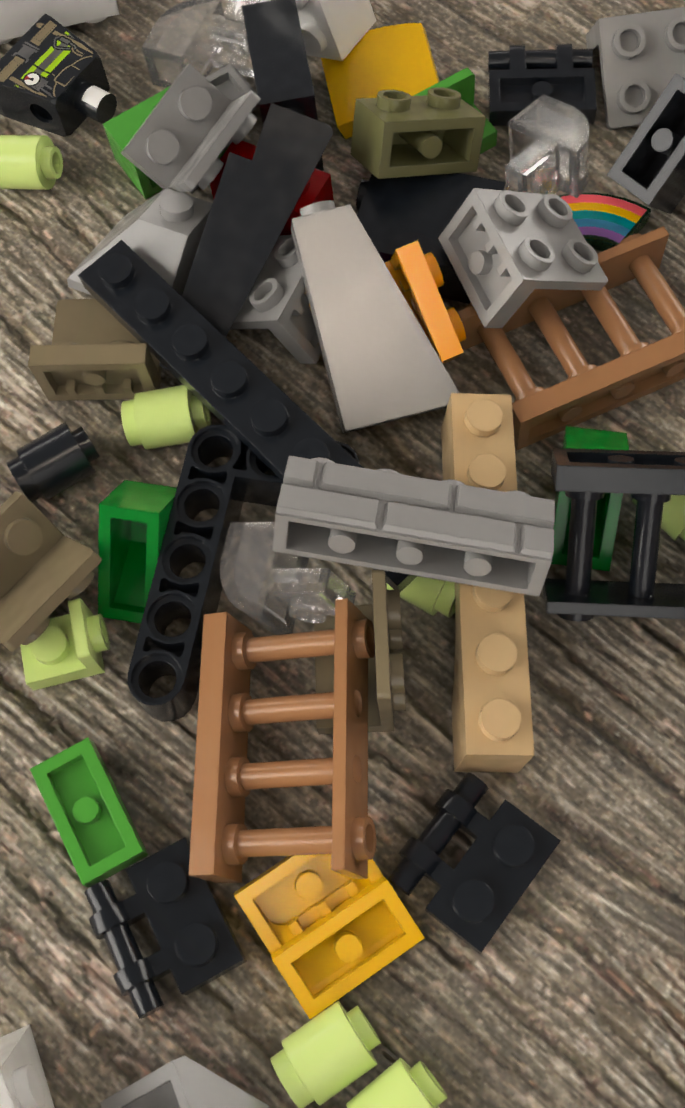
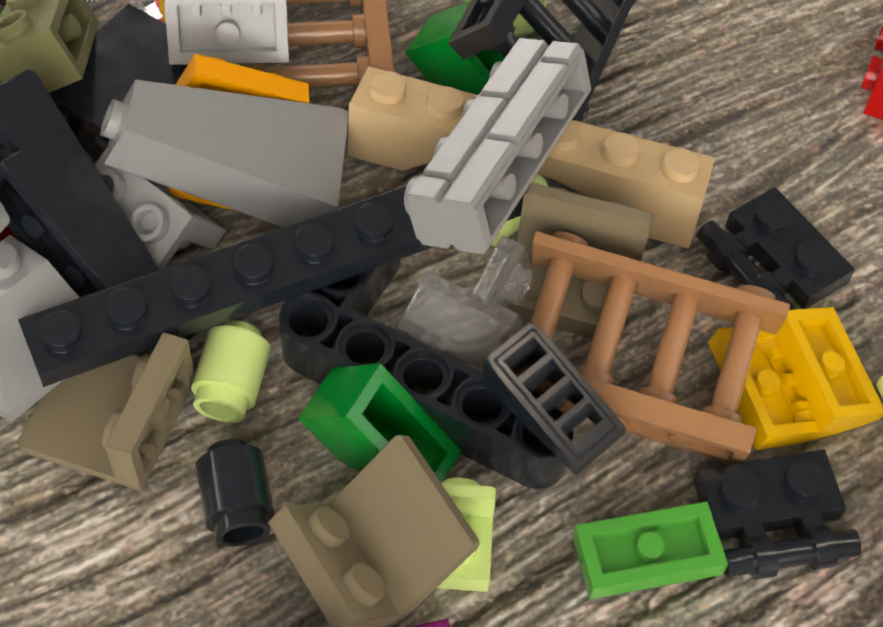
camera: 85 degrees left, 10 degrees down
(167, 638) = (549, 363): none -> black slope

